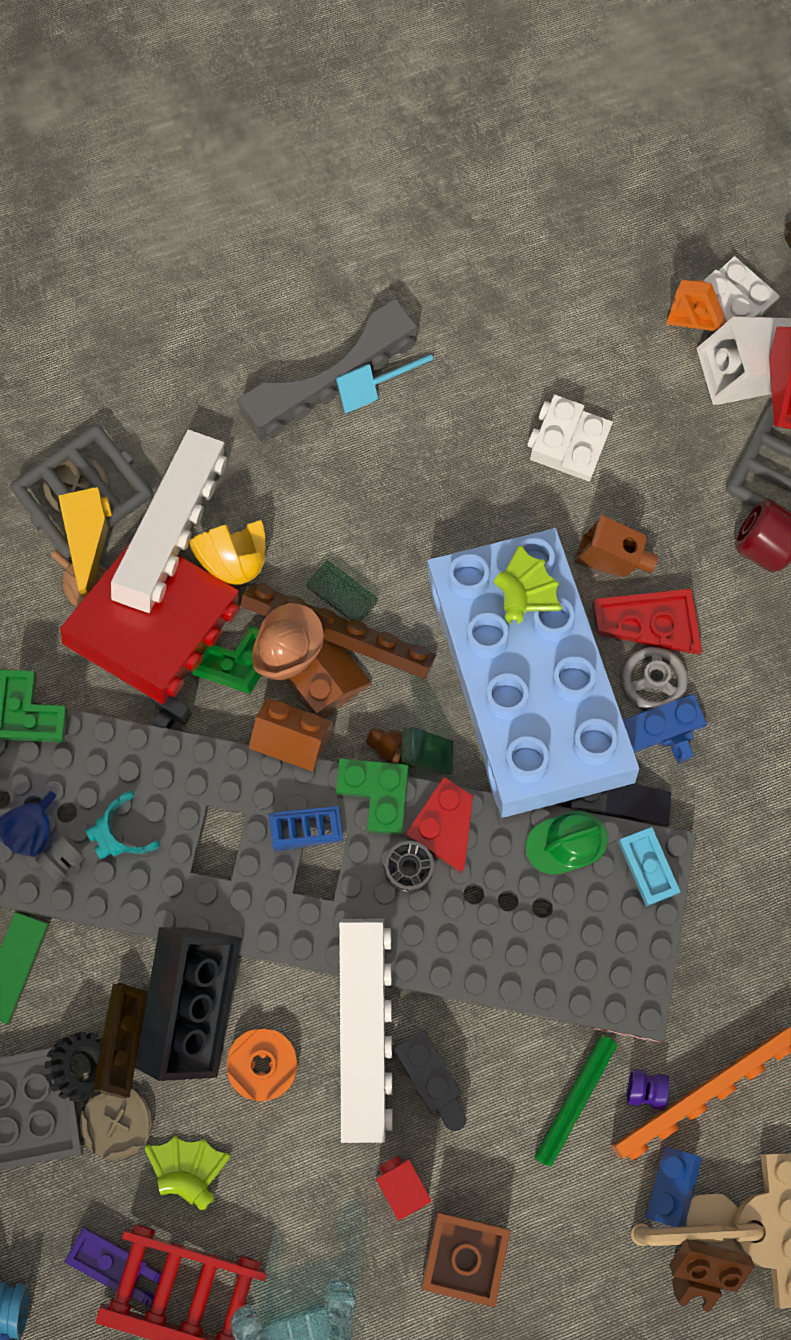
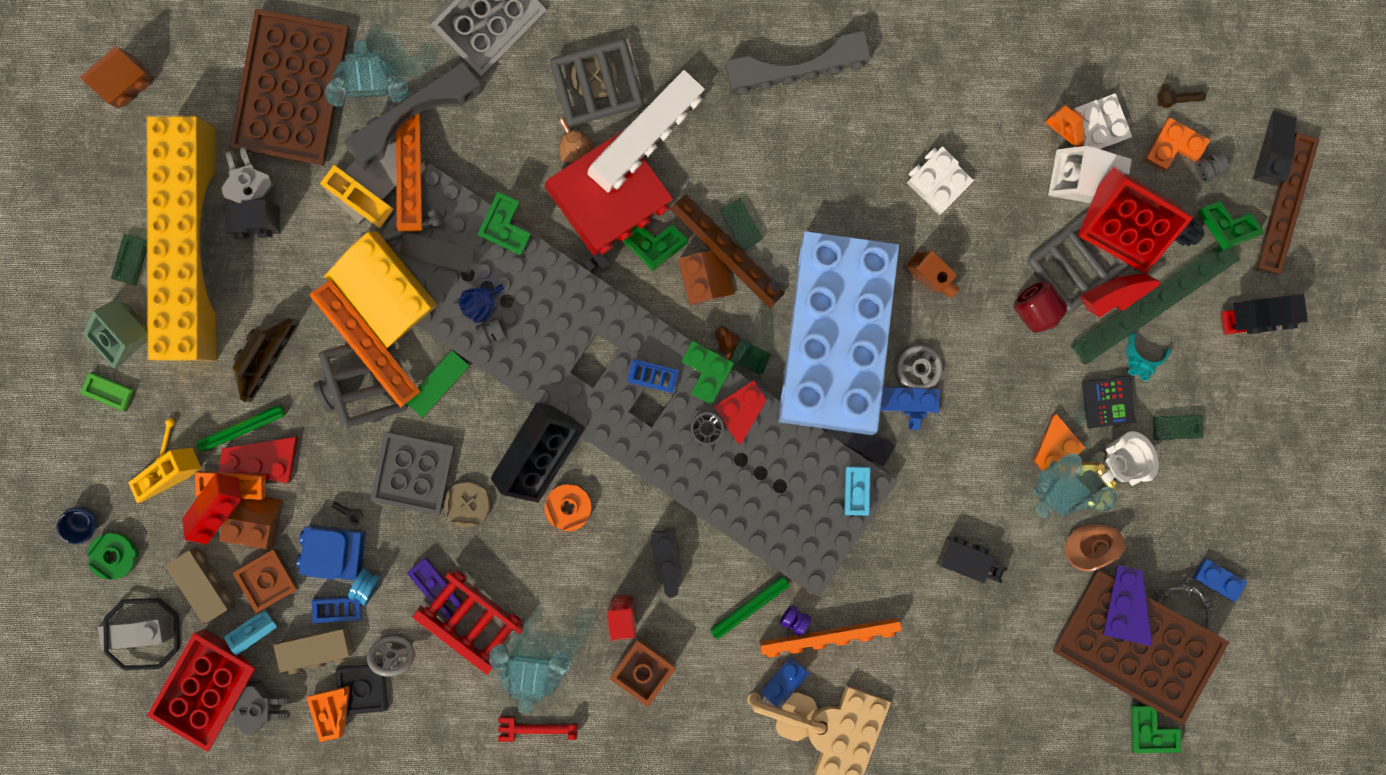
camera: 25 degrees right, 15 degrees up
(60, 1065) = (468, 470): black tyre -> none
(86, 532) = (588, 115): yellow slope -> none
(104, 836) = (524, 326): teal helmet -> none
(120, 1041) = (487, 458): dark brown tile -> none
(187, 1169) = (499, 549): lime arm -> none
(234, 556) = (679, 172): yellow hair -> none
(287, 641) = (690, 249): nougat hat -> none
(290, 734) = (667, 311): dark orange slope -> none
(358, 386) = (813, 84): medium azure piece -> none
(363, 1031) = (636, 516): white brick -> none
(526, 587) = (859, 281): lime arm -> none
(566, 843) = (812, 453): green piece -> none
(651, 619) = (935, 328): red wing -> none
(705, 1270) = (780, 738): reddish brown plate -> none

